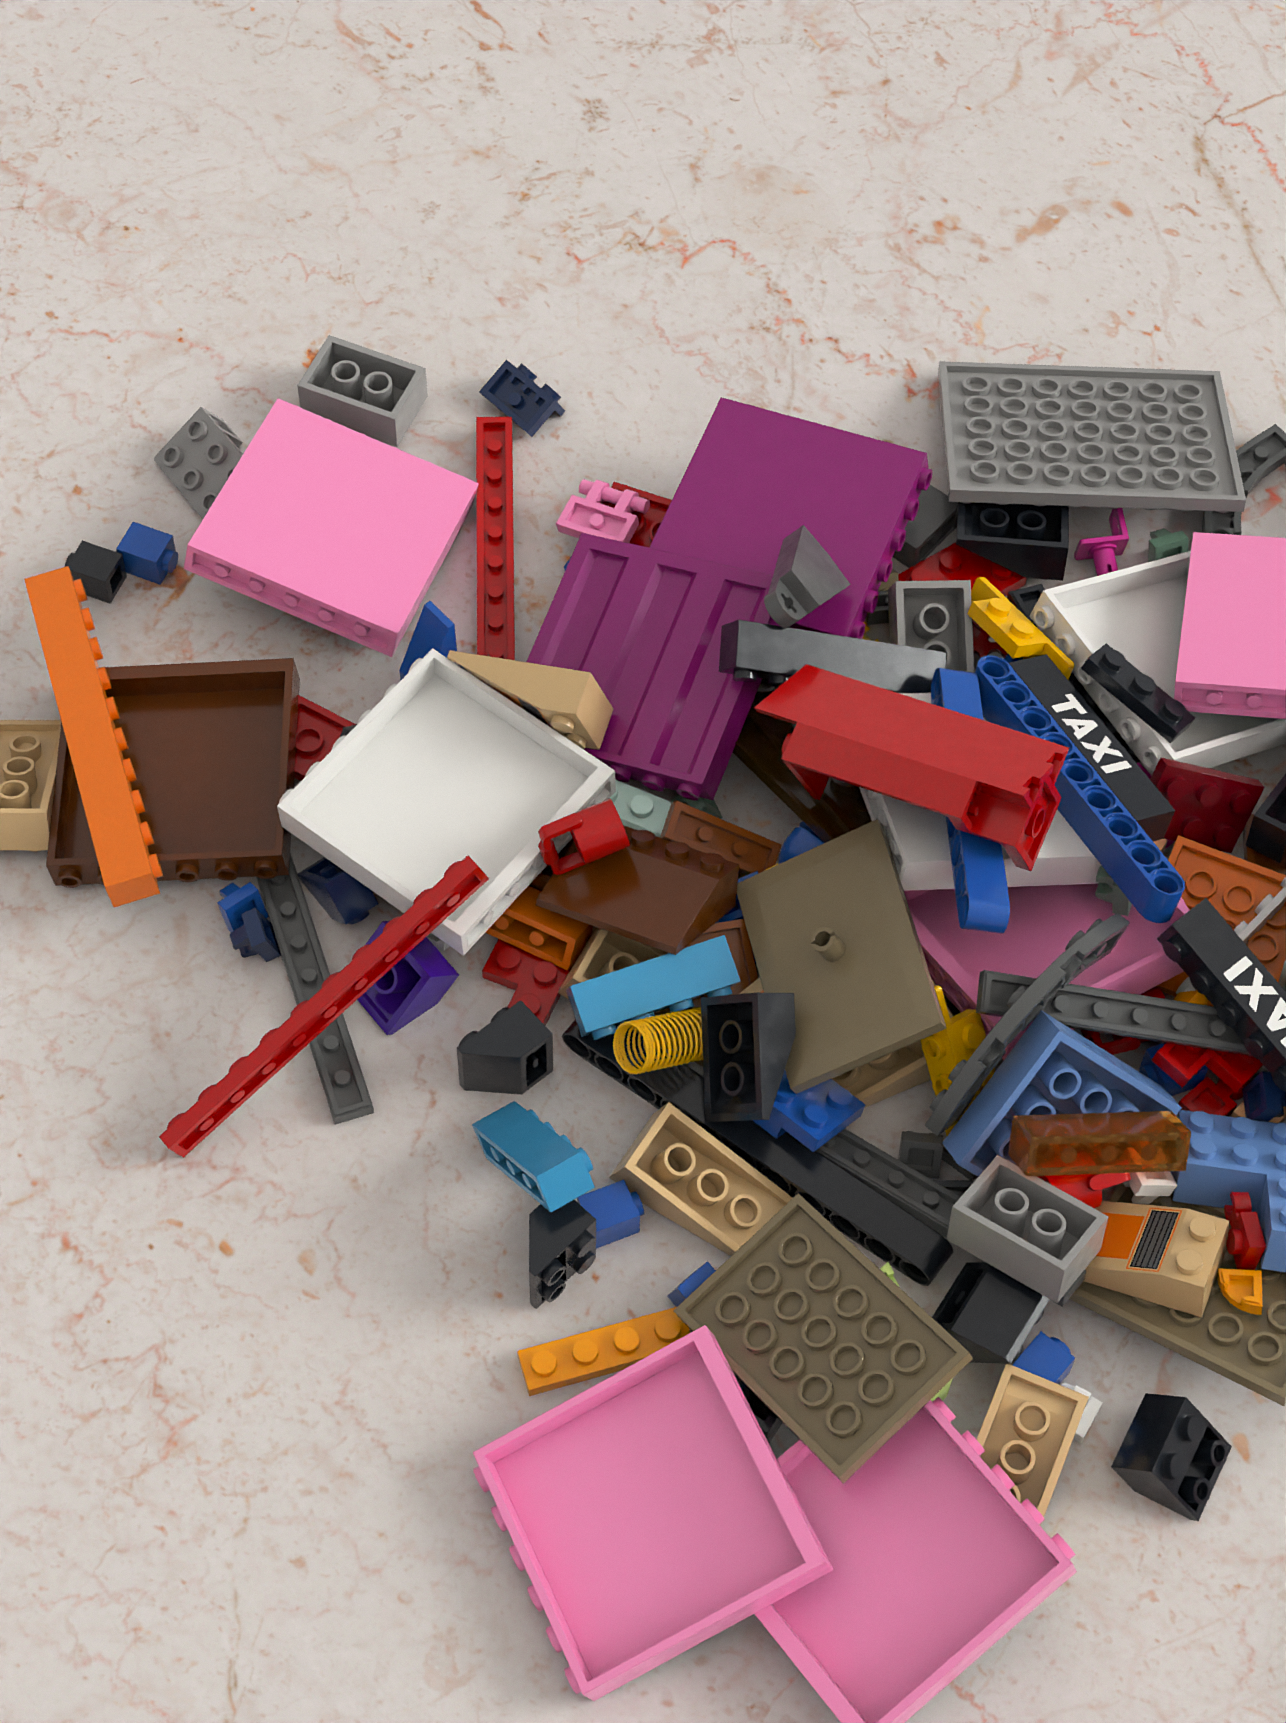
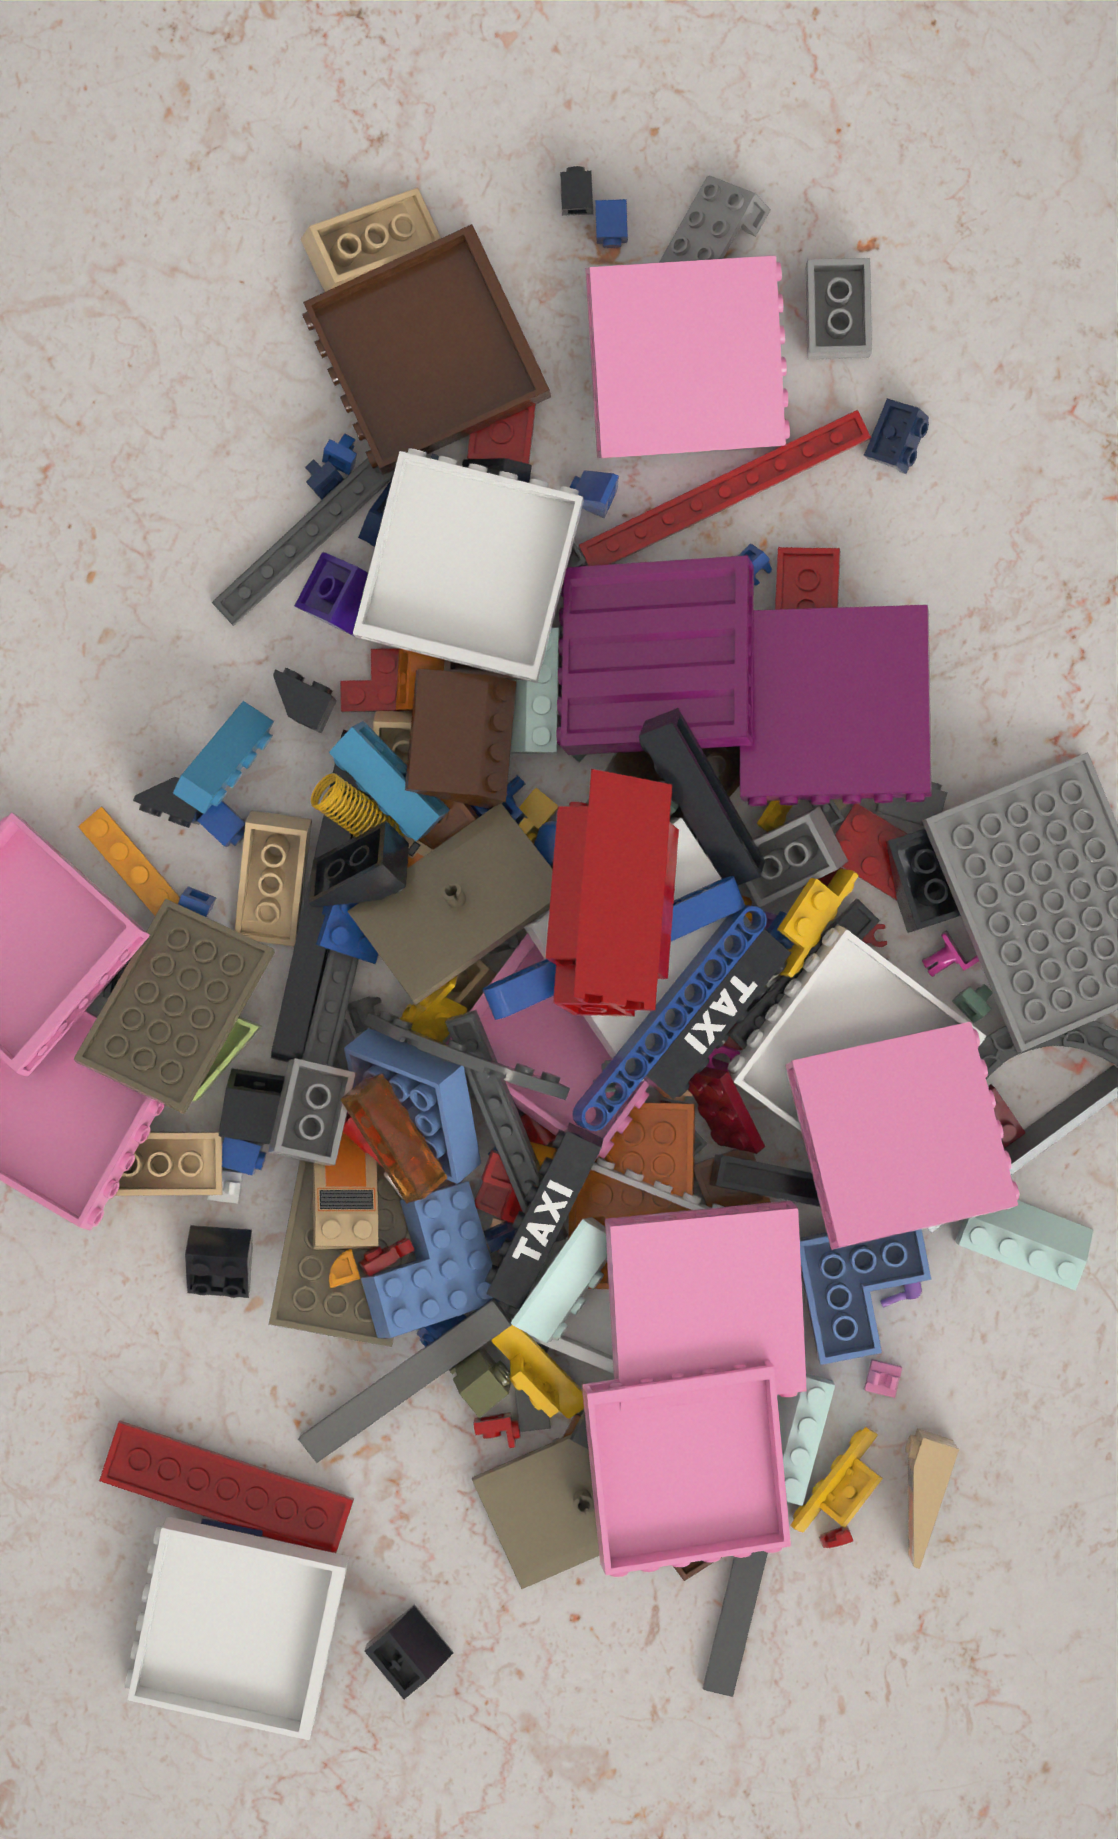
camera: 70 degrees right, 30 degrees up
(92, 739) = (417, 276): orange brick -> none
(317, 1013) = (277, 567): red plate -> none
(557, 696) = (578, 597): tan slope -> none
(595, 832) = (470, 686): red piece -> none
(600, 520) = (789, 554): bright pink plate -> none
(720, 837) = (536, 774): dark orange plate -> none
(802, 579) = (747, 752): dark grey piece -> none
(1138, 692) = (780, 1034): black plate -> none

